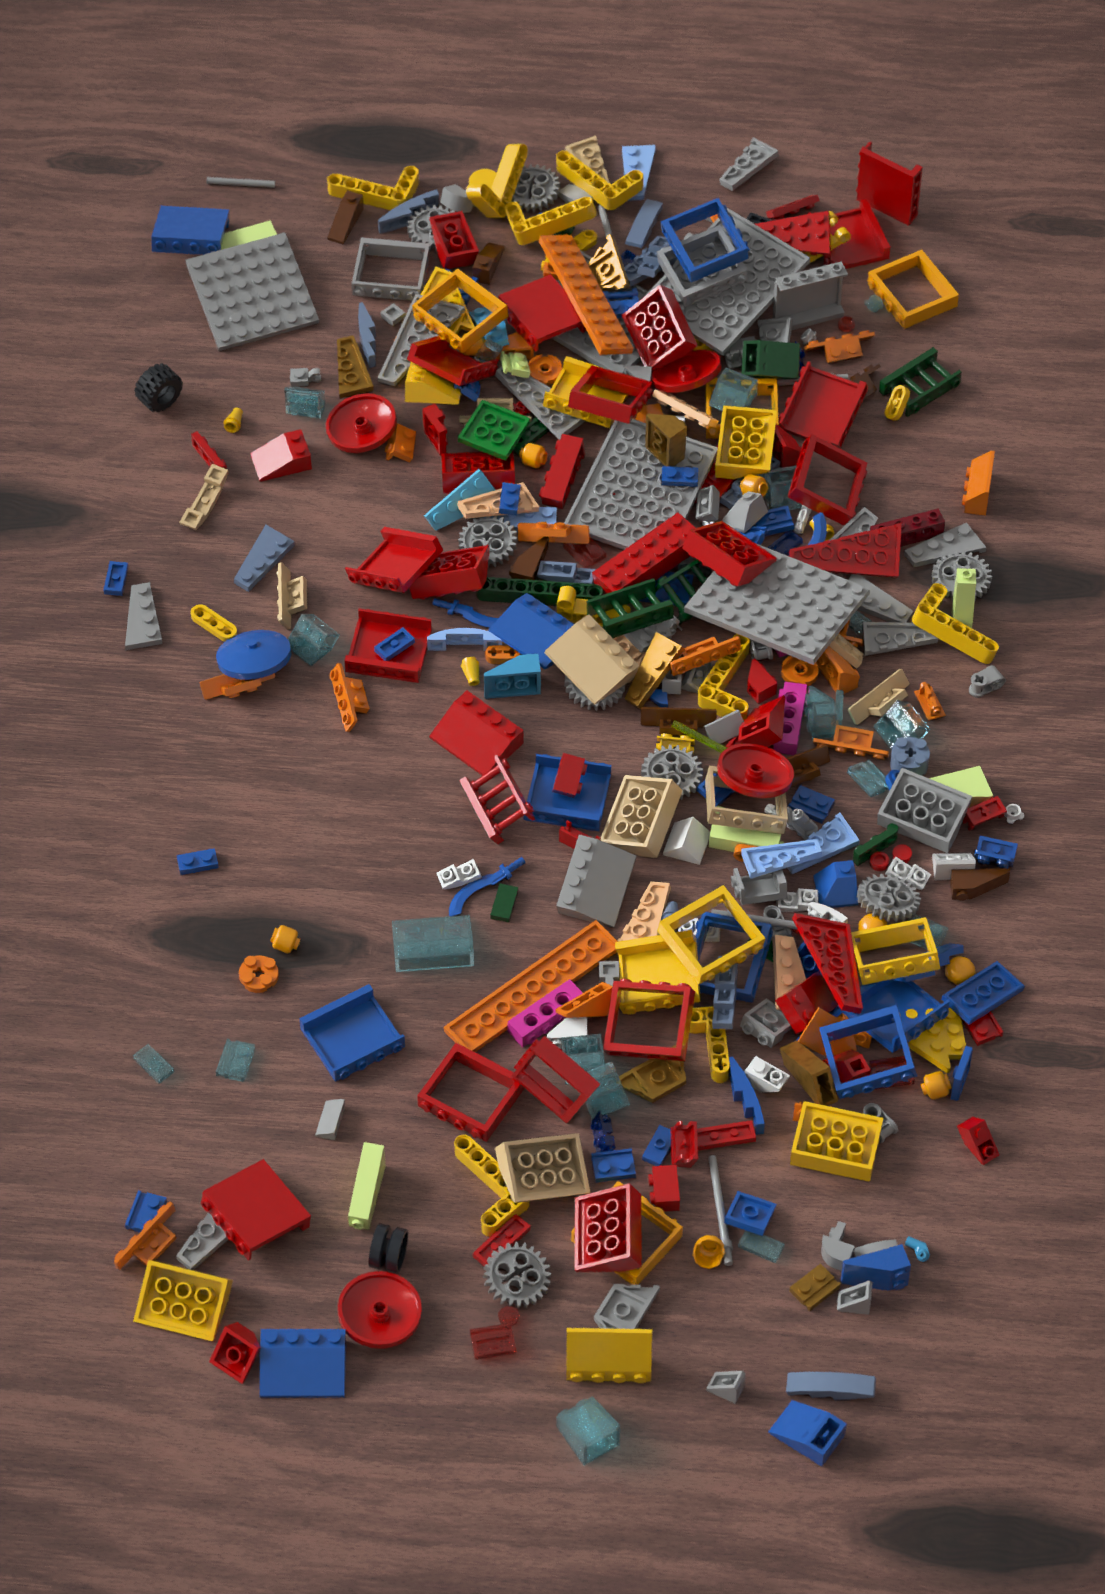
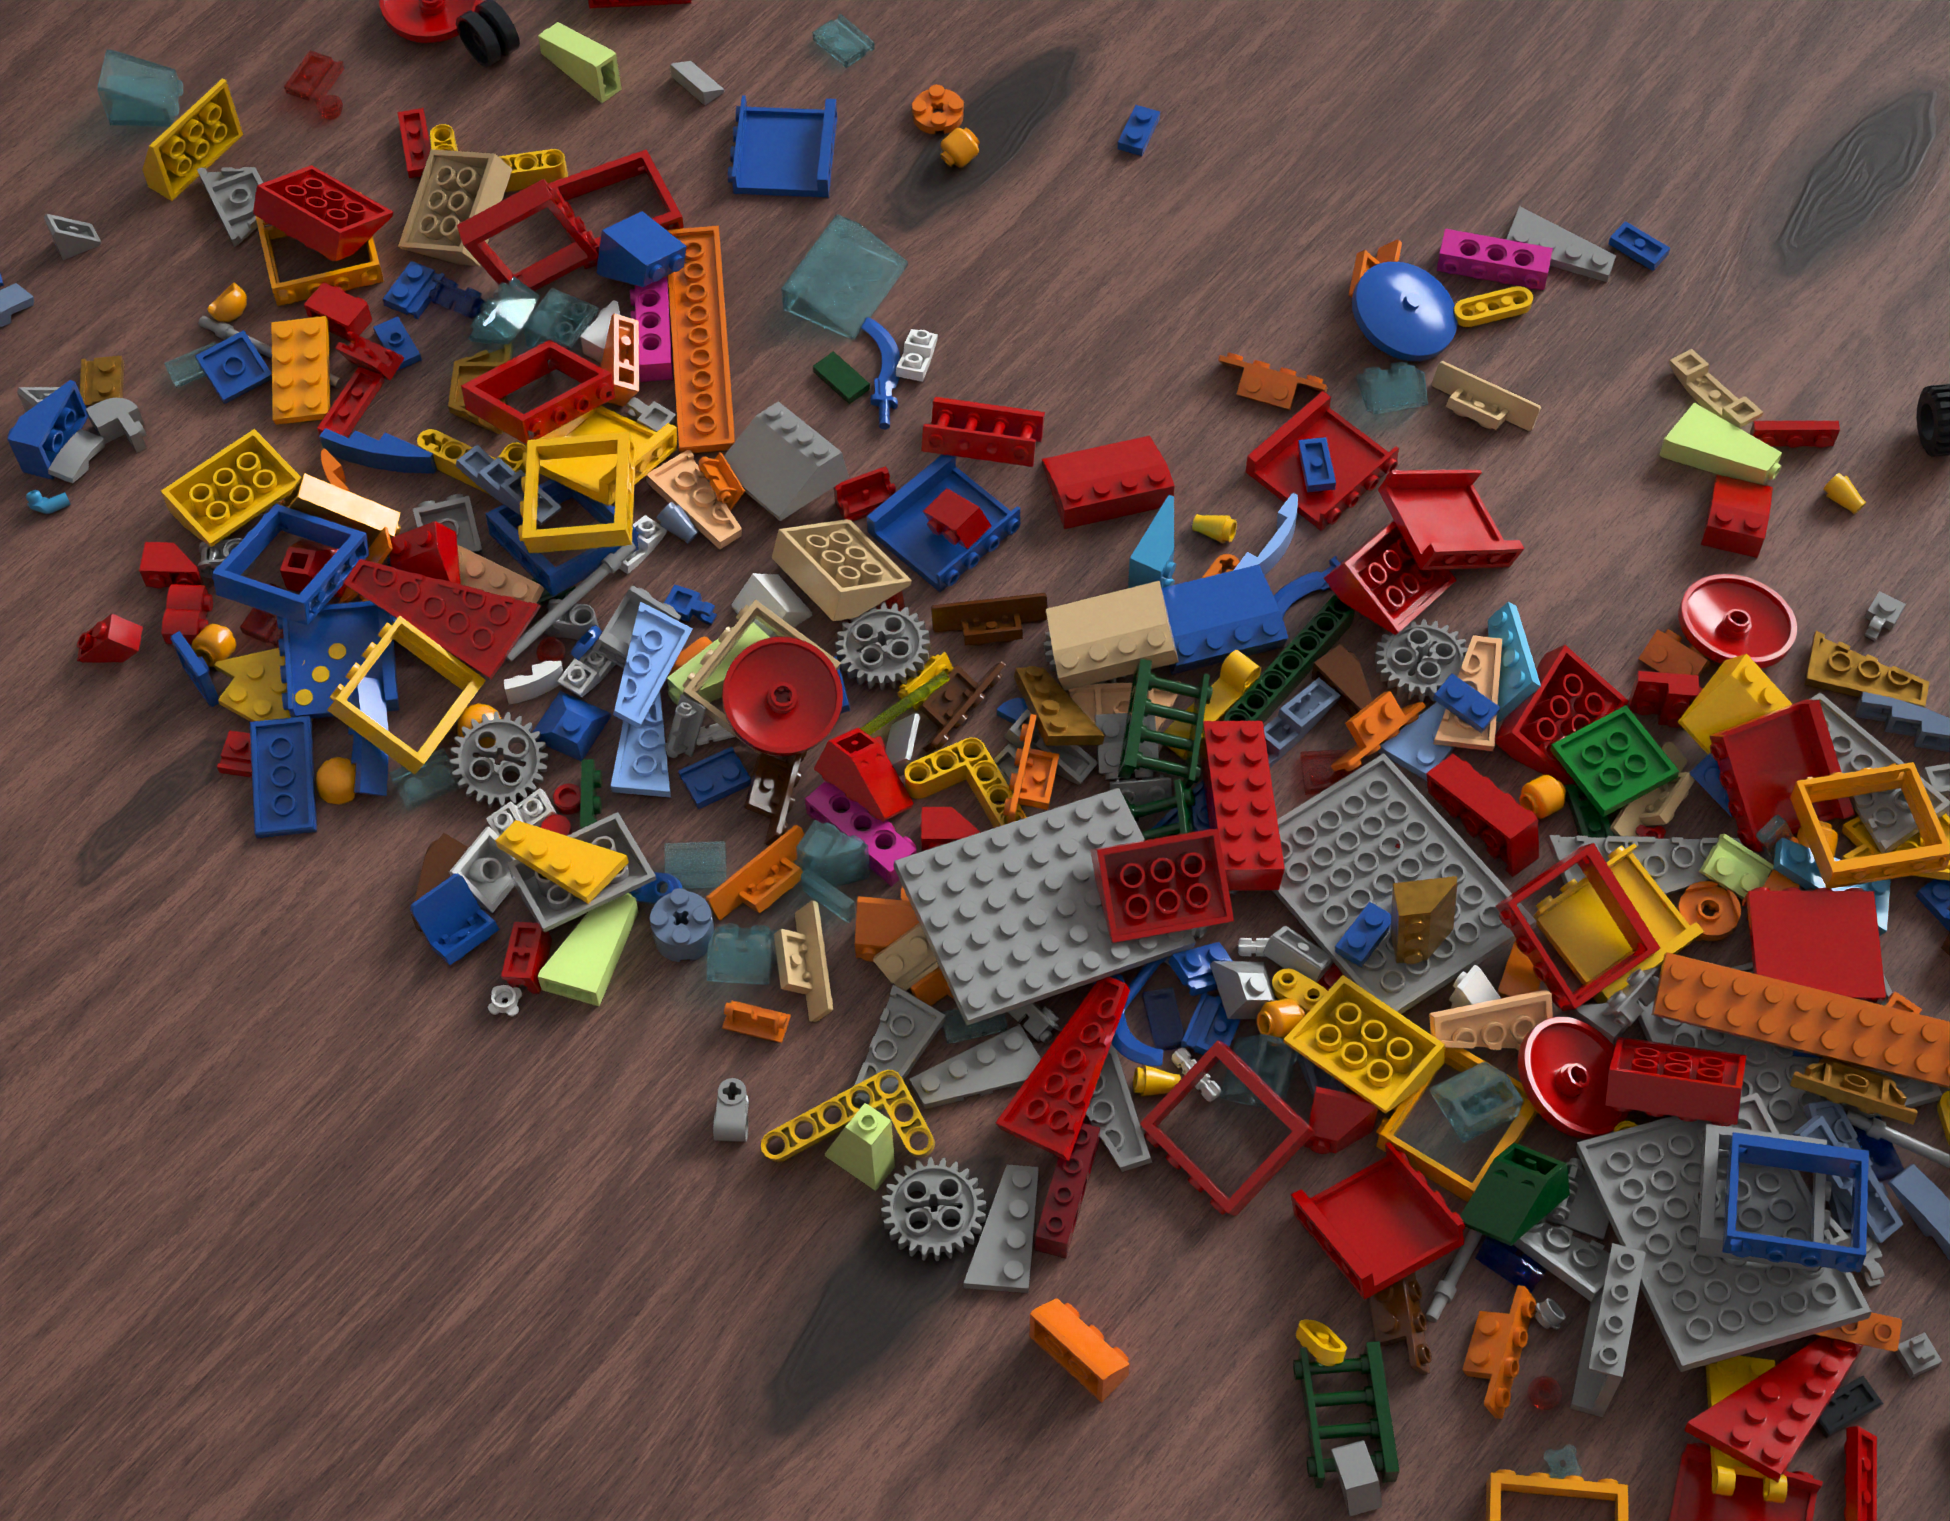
camera: 125 degrees right, 5 degrees up
(178, 636) = (1494, 259): none -> dark pink brick
(243, 485) = (1720, 448): none -> yellowish green slope
(264, 555) = (1574, 414): sand blue wing -> none
(304, 401) = (1826, 579): clear light blue slope -> none
(506, 1034) = (639, 251): none -> blue slope
(506, 1260) = (363, 130): light grey gear -> none
(618, 732) = (990, 618): none -> reddish brown bracket
(621, 306) = (1767, 1074): blue plate -> none
(625, 909) = (722, 479): none -> orange hinge
(627, 365) = (1623, 1003): none -> light grey hinge
(719, 877) = (689, 603): none -> blue plate
(723, 1176) = (300, 370): none -> light orange plate
(728, 491) = (1298, 990): none -> yellow plate
(765, 1076) = (379, 480): white slope -> none
(780, 1106) = (333, 470): none -> orange slope
(786, 905) = (586, 642): none -> blue tile
(908, 1147) = (166, 565): none -> red slope
(927, 813) = (566, 861): none -> yellow wing
(929, 1114) = (186, 611): none -> red brick
(948, 360) = (1357, 1478): none -> light grey slope

